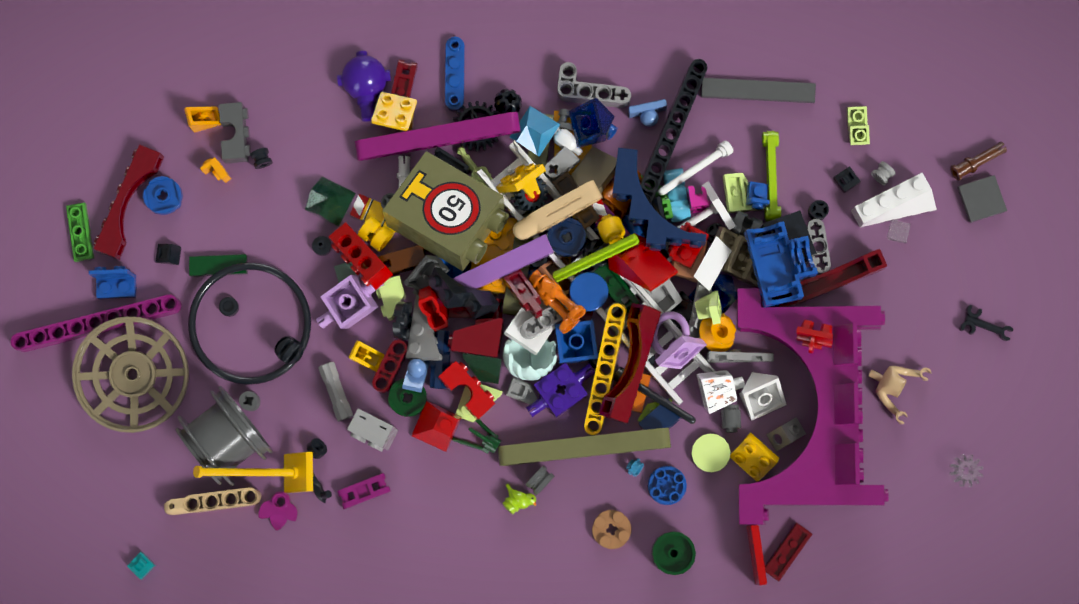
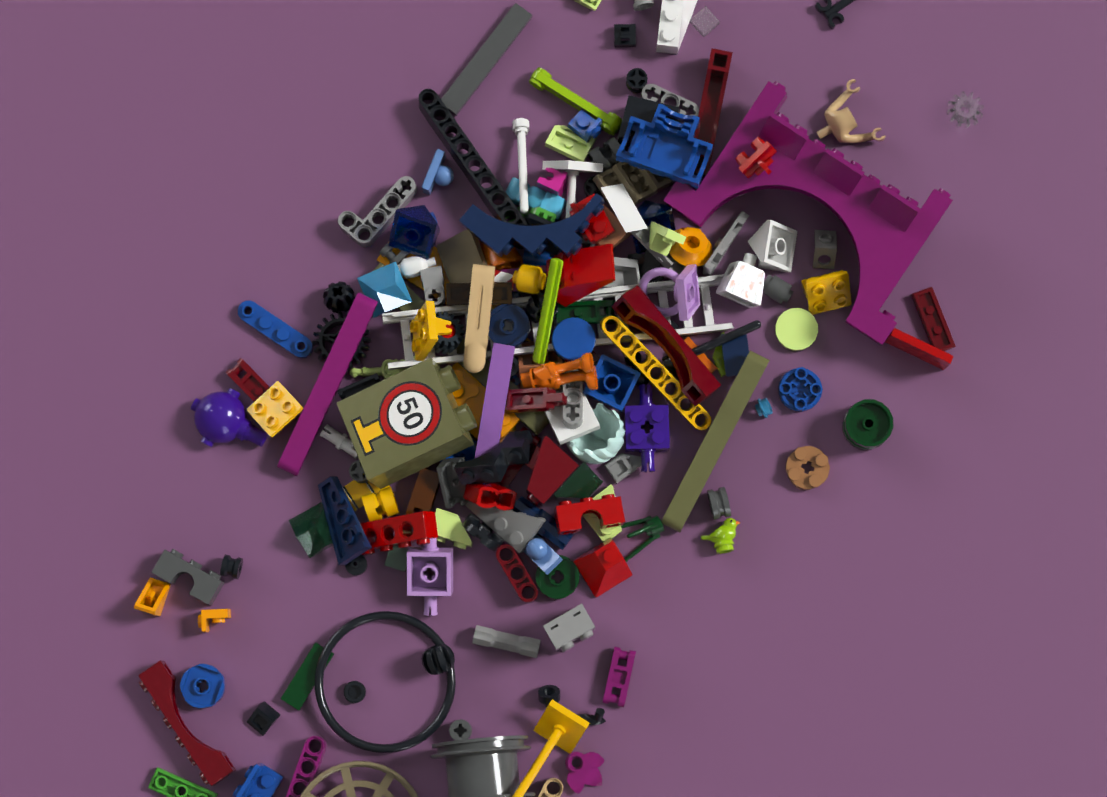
camera: 55 degrees left, 0 degrees up
(340, 219) = (344, 527): none -> dark blue wing
(366, 356) = (493, 589): yellow slope -> none

